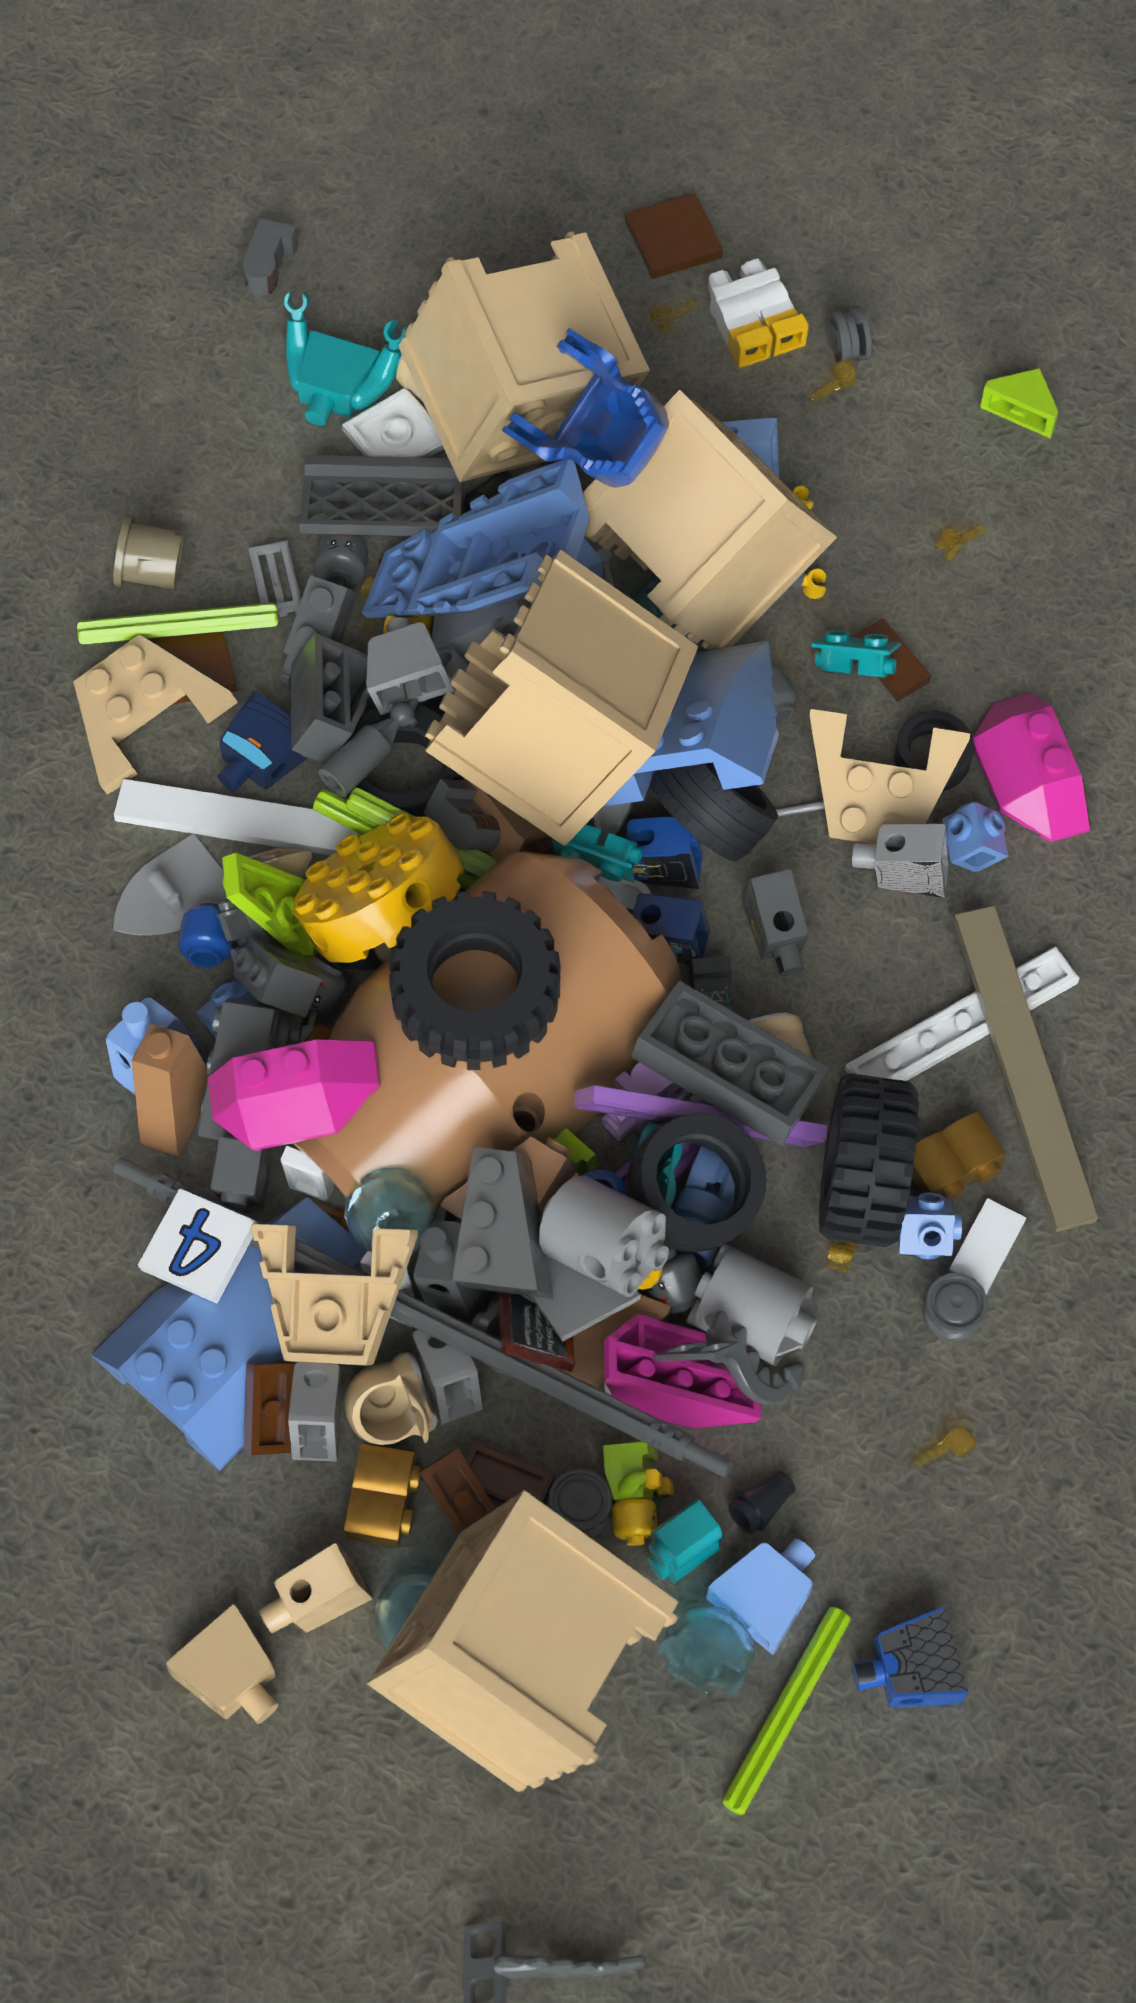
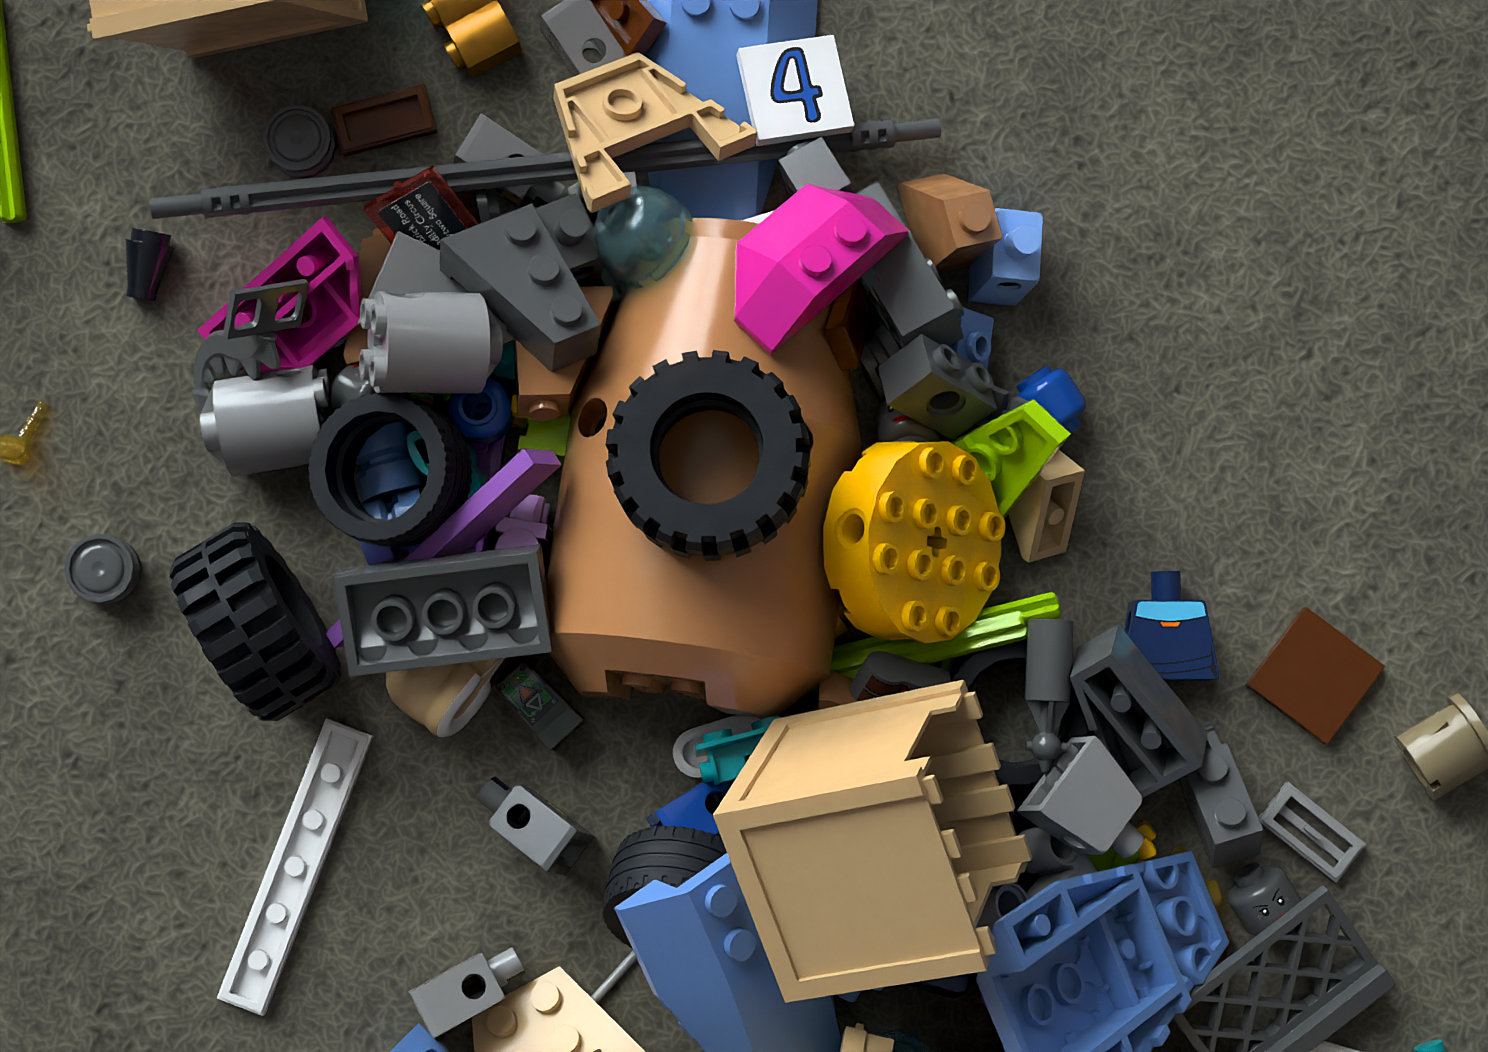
camera: 140 degrees right, 20 degrees up
(131, 691) = (1339, 592): tan wing -> none
(168, 888) = (1125, 432): light grey shield -> none
(177, 623) = (1356, 700): axle -> none
(228, 817) = (1140, 540): white tile -> none
(389, 1402) = (517, 90): tan piece -> none
(456, 1490) = (400, 64): reddish brown plate -> none
(632, 1486) = (245, 162): piece -> none
(678, 920) = (619, 746): dark blue torso -> none
(684, 1542) = (175, 158): teal brick -> none
(709, 1648) = (93, 99): clear light blue cylinder -> none
(766, 1590) = (84, 183): light blue torso -> none
(929, 1226) = (167, 629): brick -> none
(957, 1157) = (200, 717): pearl gold brick -> none
(988, 1243) = (118, 655): white tile -> none
(1025, 1069) = (204, 860): dark tan tile -> none

